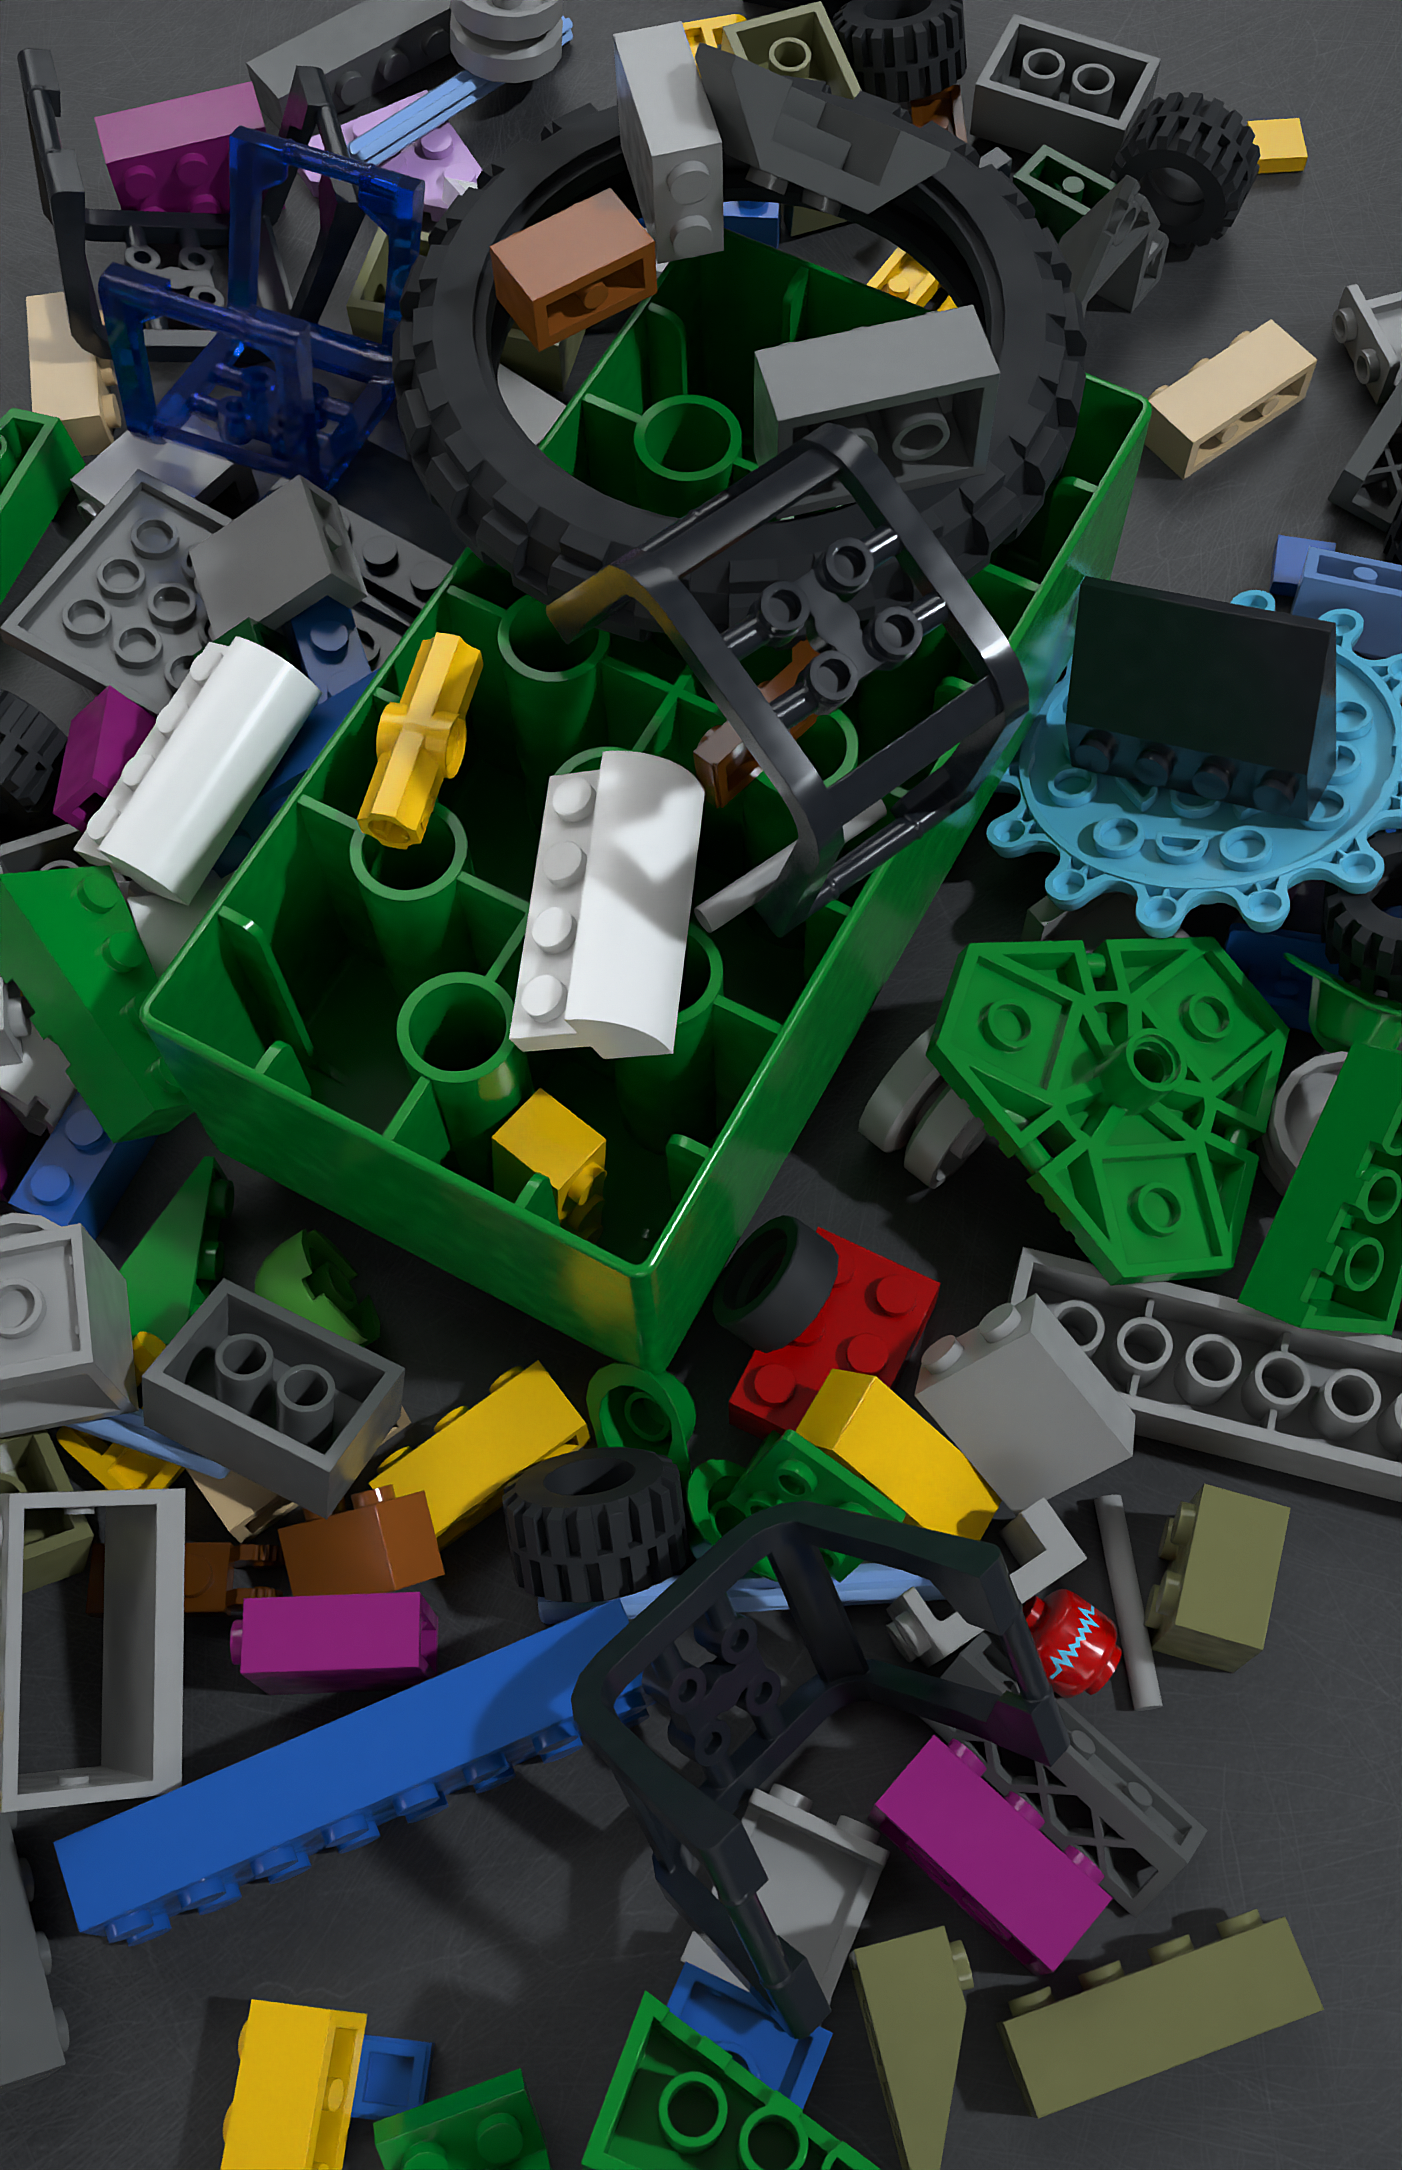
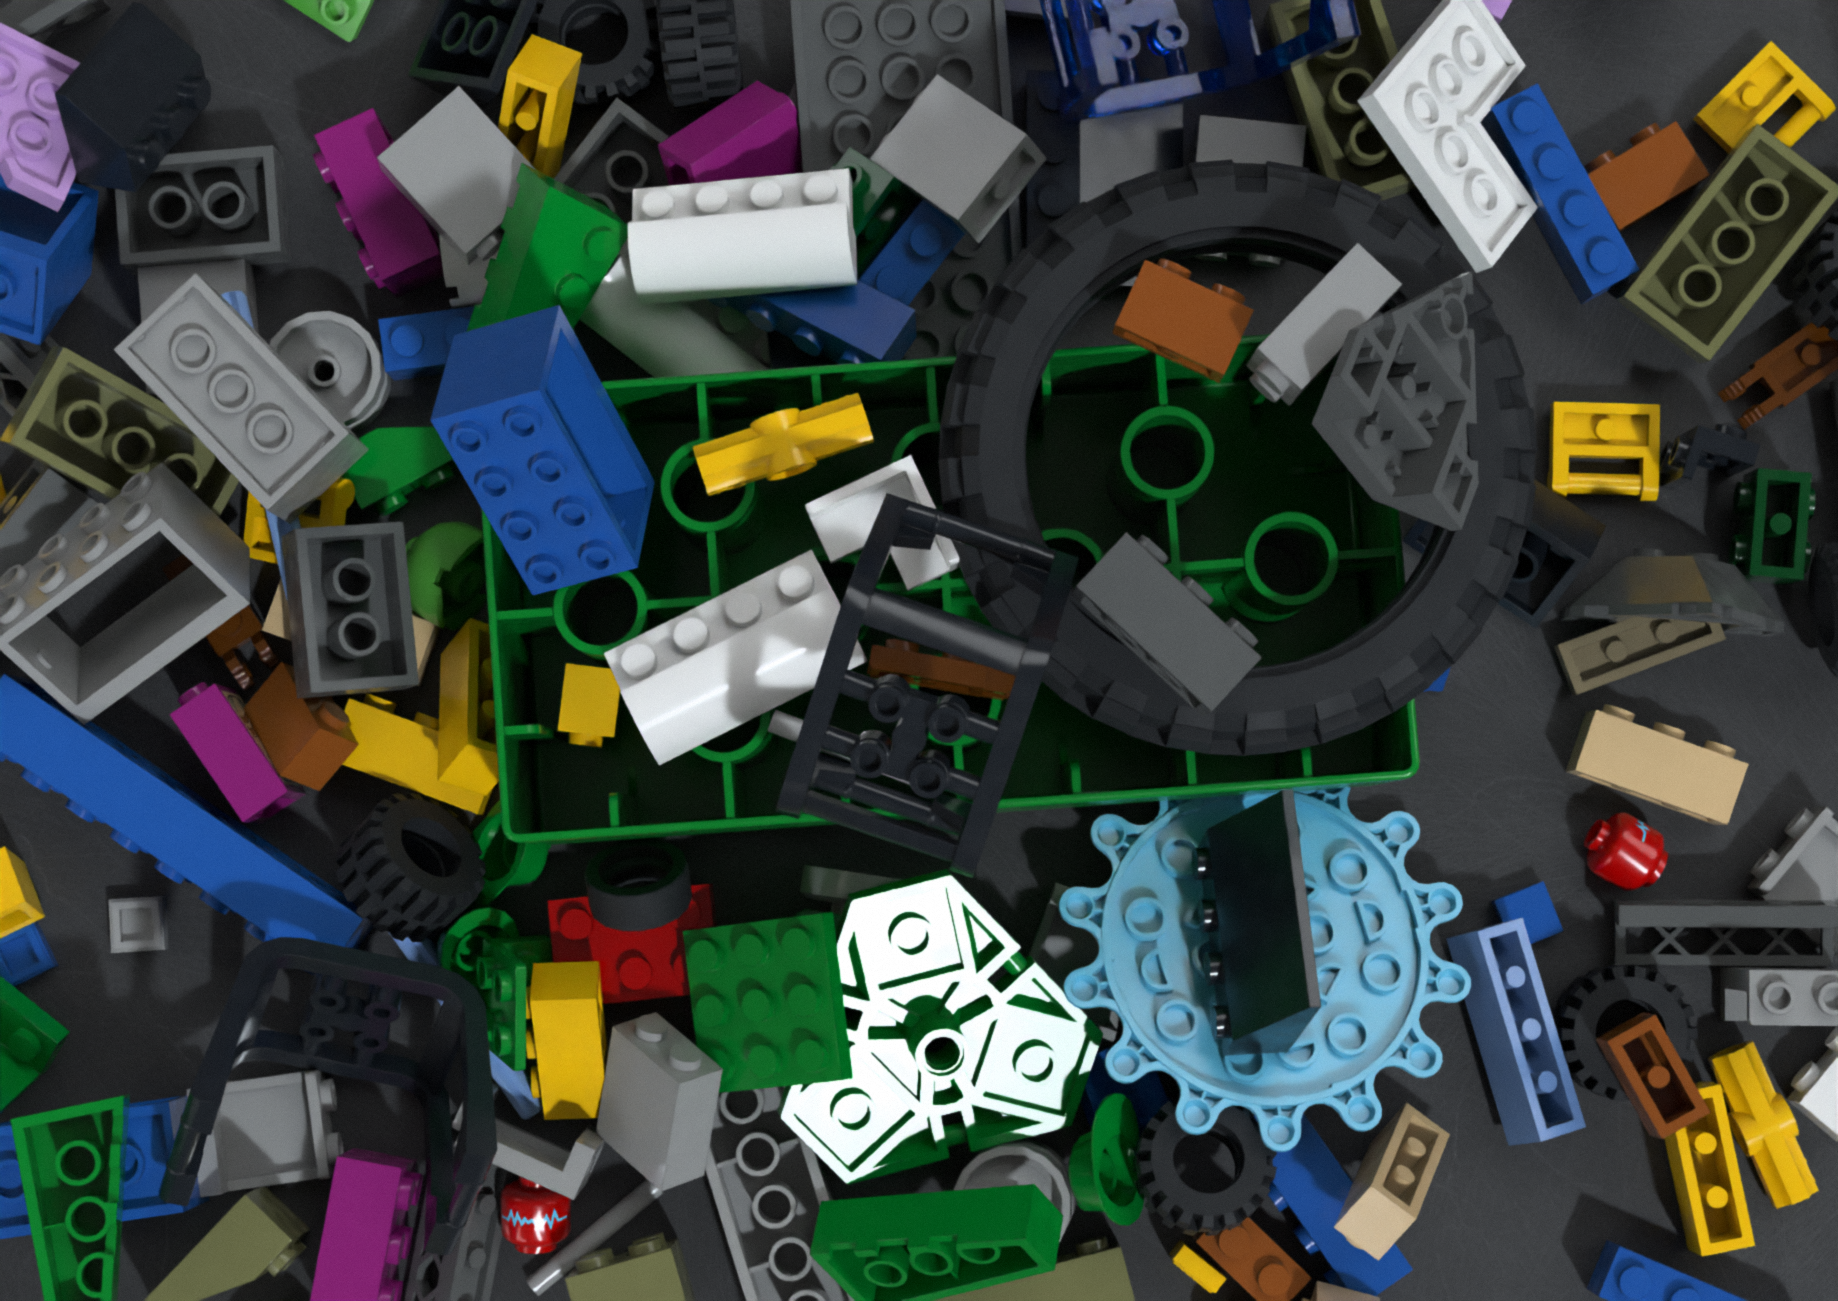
camera: 55 degrees right, 20 degrees up
(246, 950) = (544, 450): none -> blue hose
(451, 1907) = (138, 924): none -> light grey tile
(476, 1340) = (467, 712): none -> yellow brick
(556, 688) = (847, 516): none -> white panel
(989, 1206) = (769, 1002): none -> green plate
(1111, 333) = (1630, 648): none -> dark tan plate
(1291, 458) = (1625, 851): none -> red head

